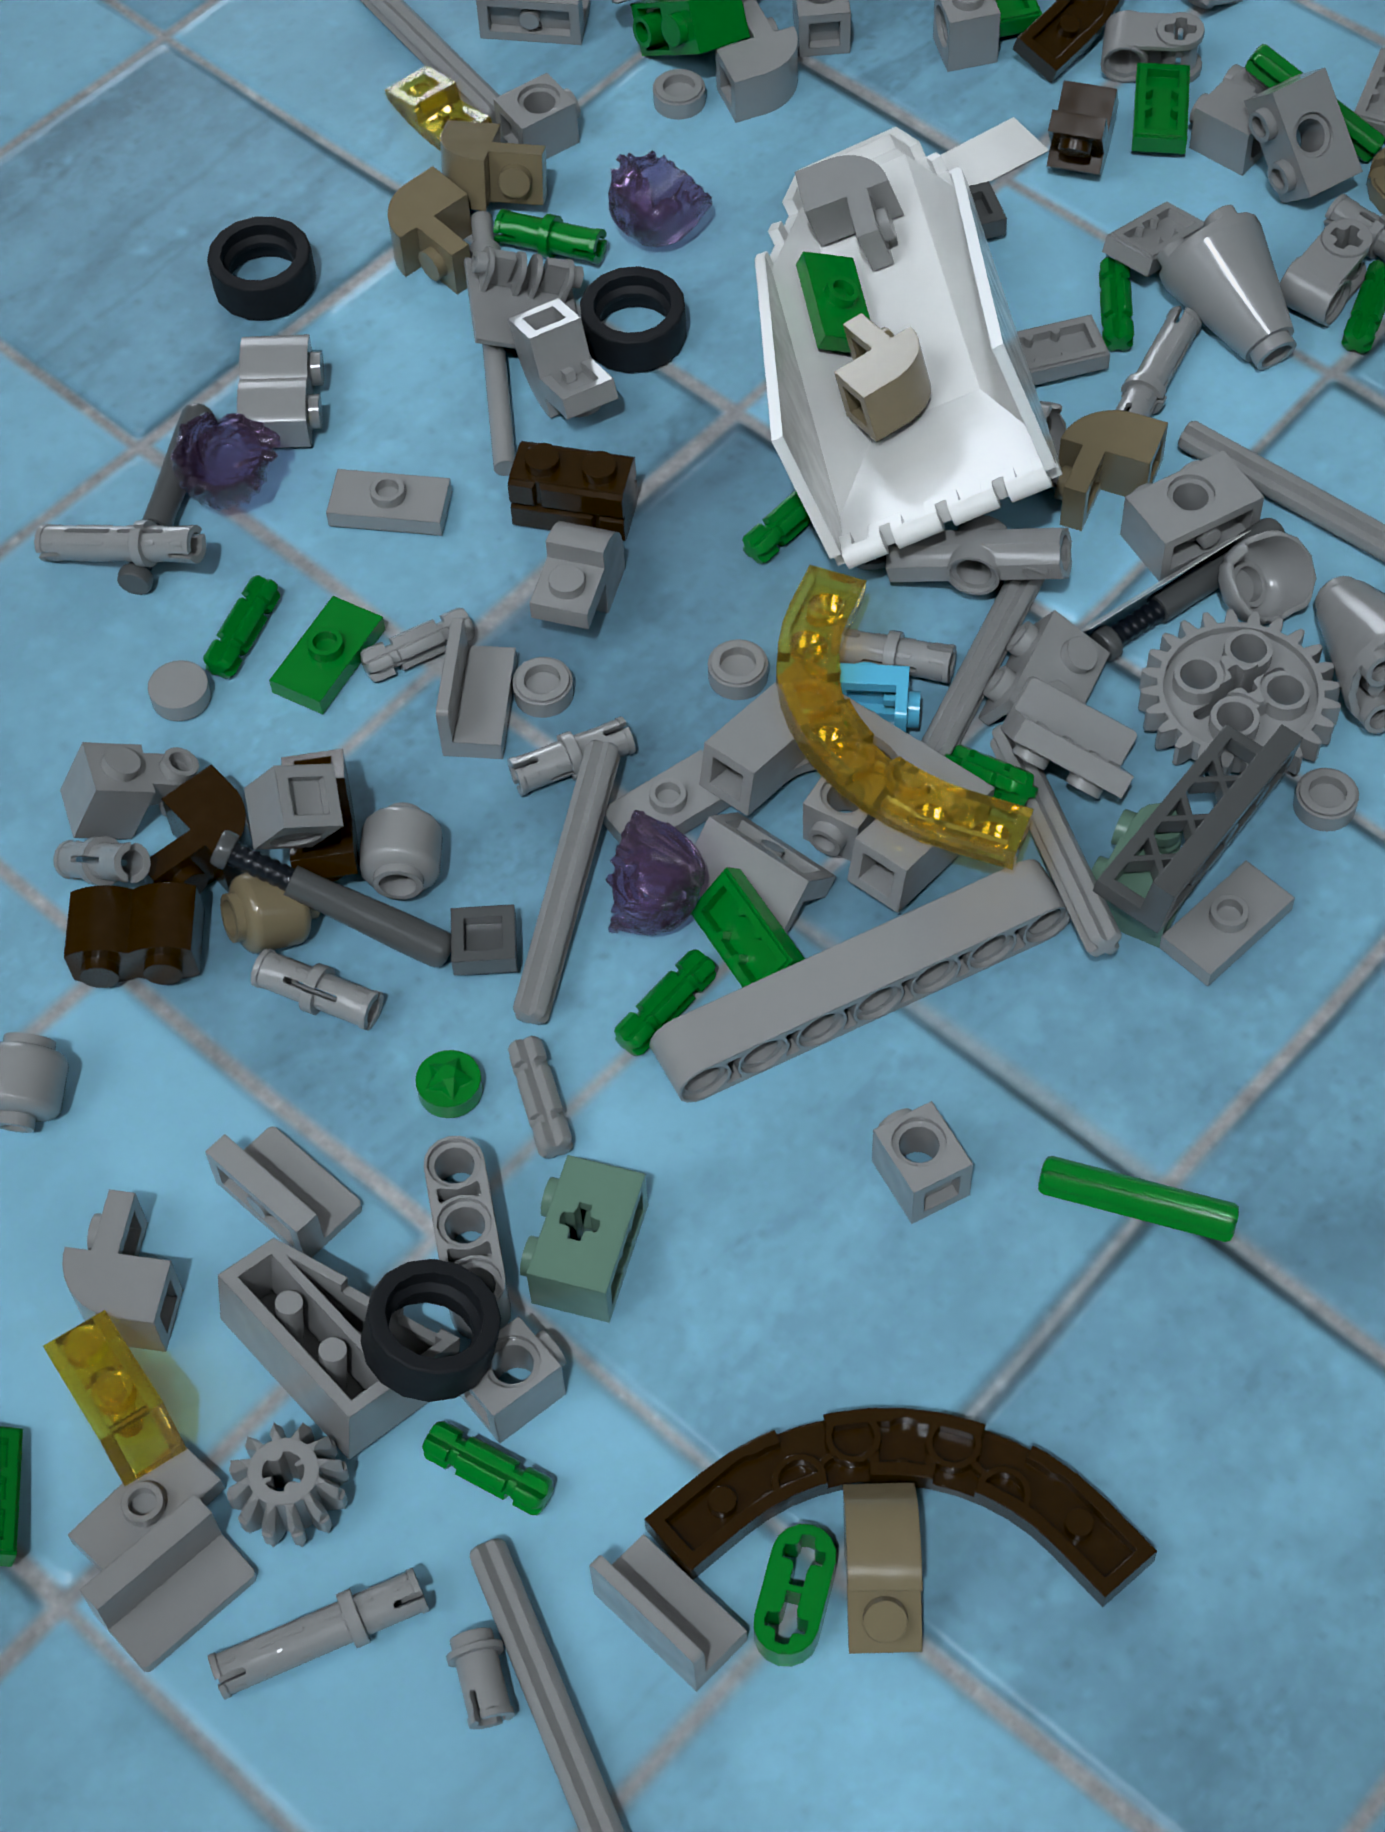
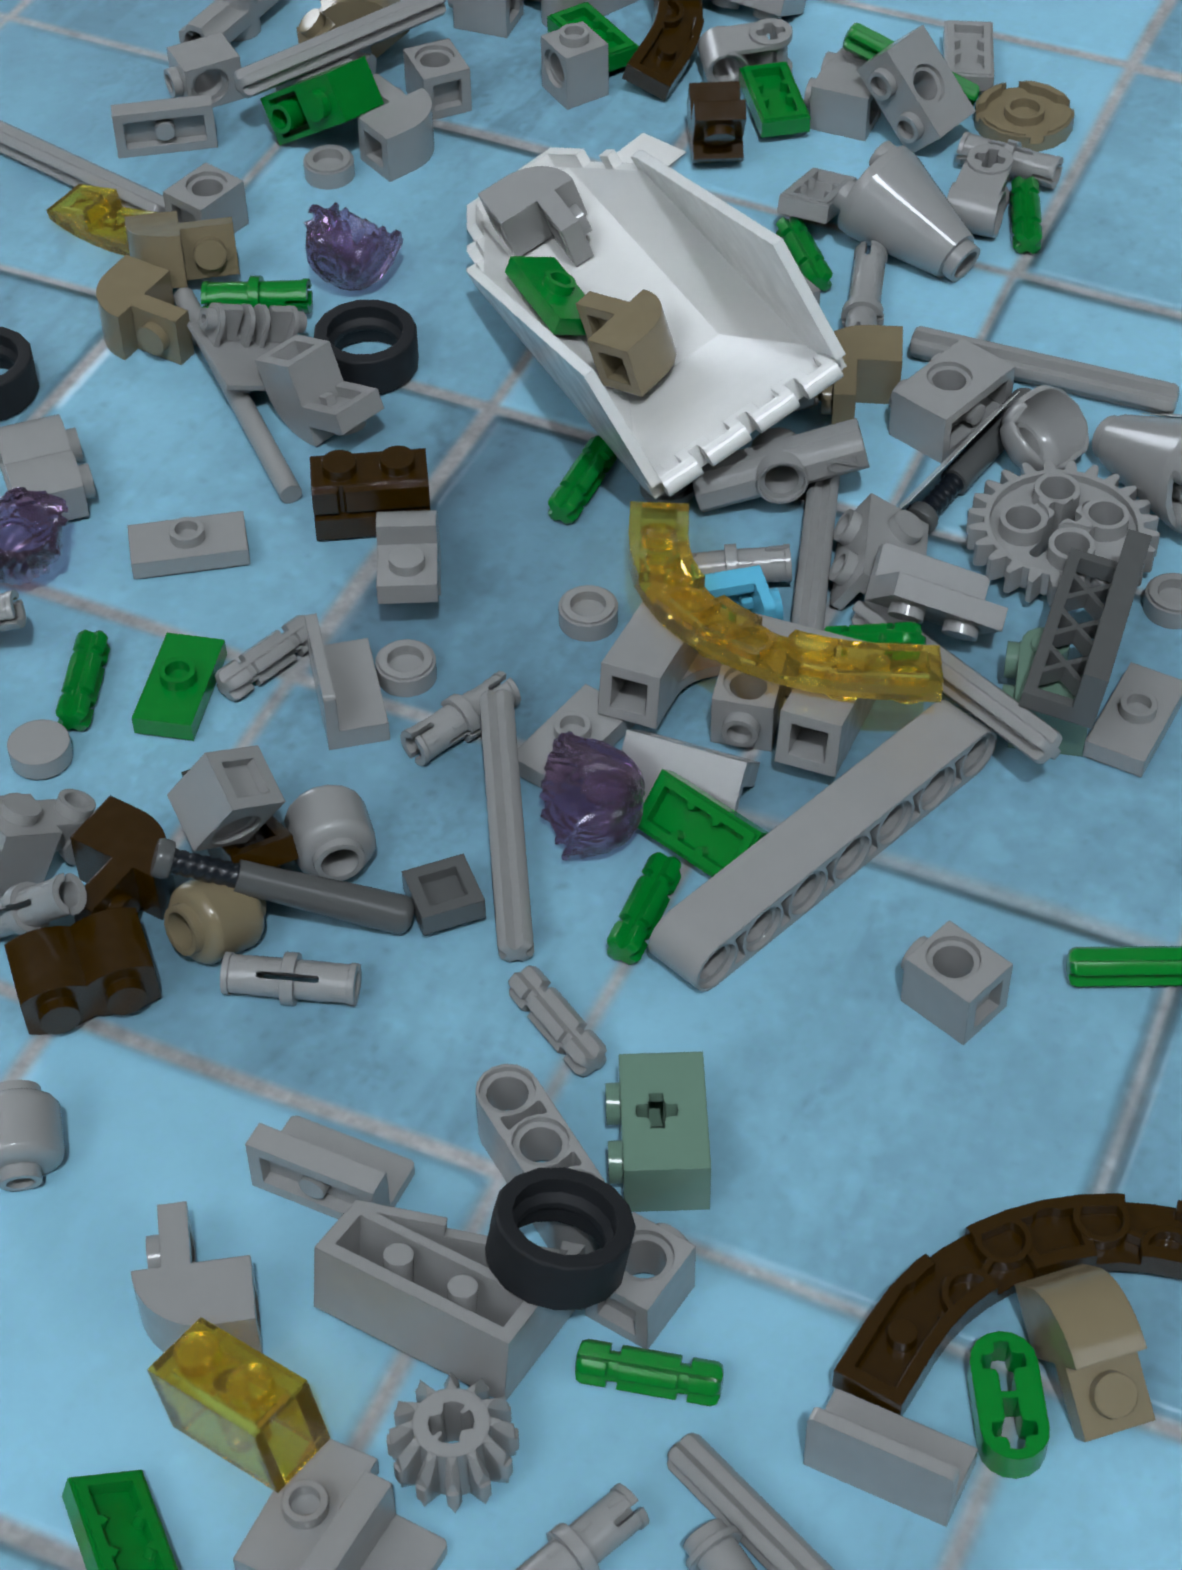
camera: 20 degrees left, 10 degrees down
(449, 1084) = (460, 1032): green tile -> none

